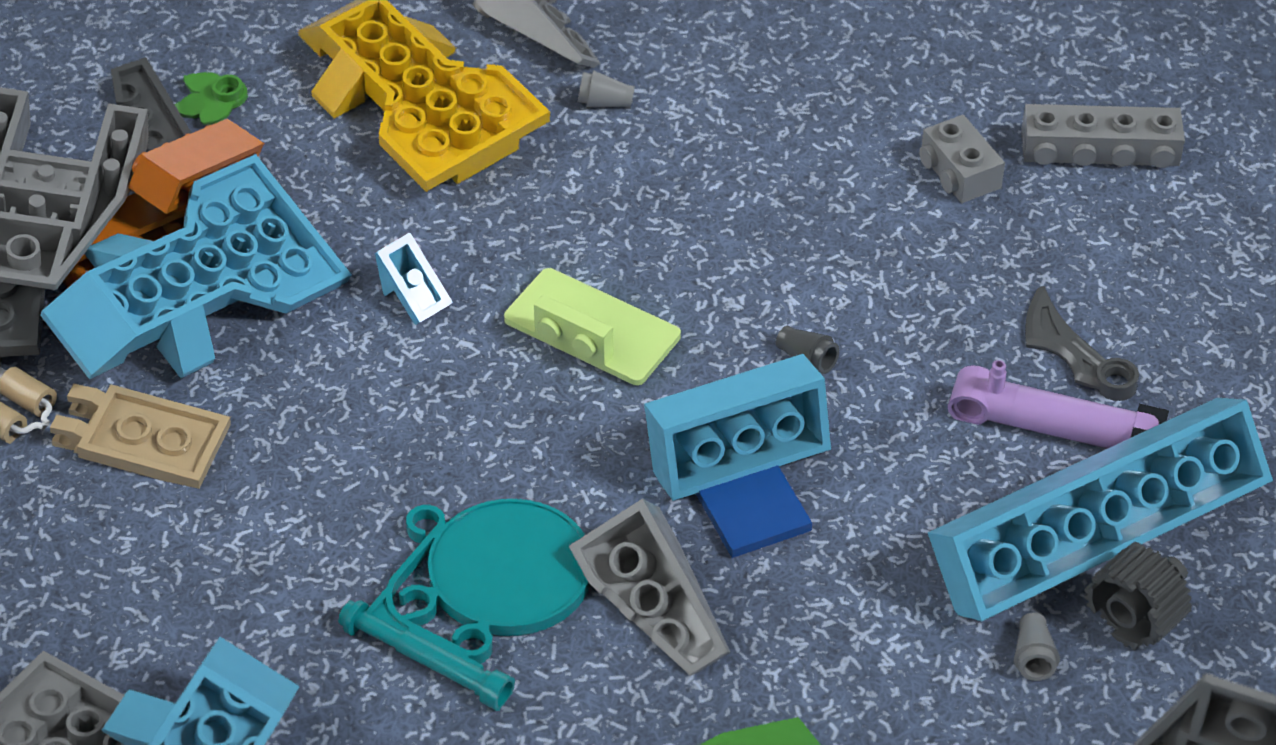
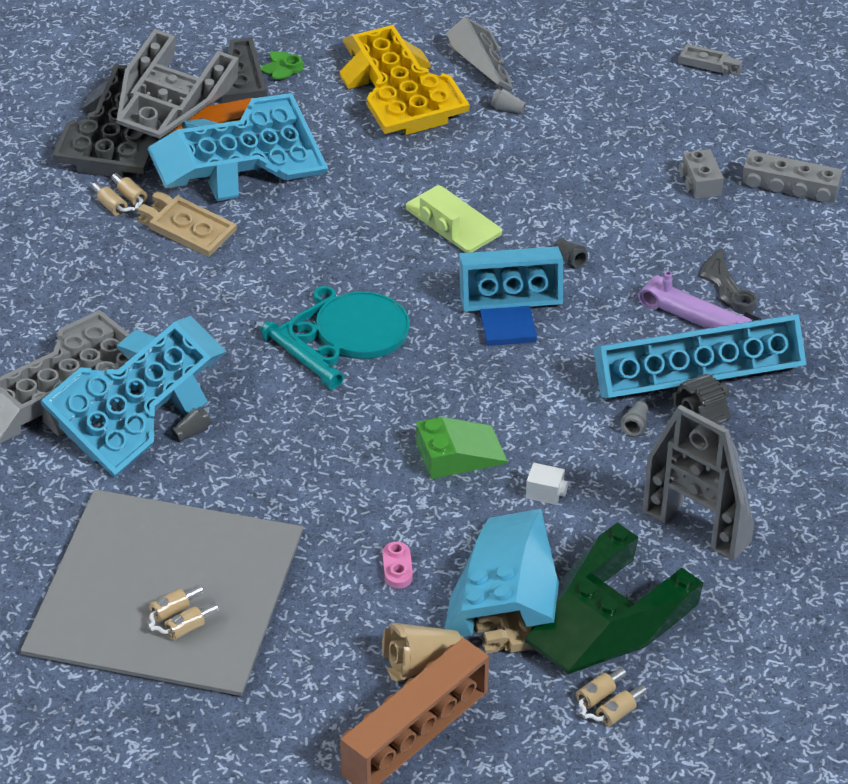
camera: 15 degrees right, 5 degrees down
(168, 172) = (238, 91): orange brick -> none
(410, 276) = (359, 174): slope -> none
(650, 581) = (435, 344): light grey wedge -> none

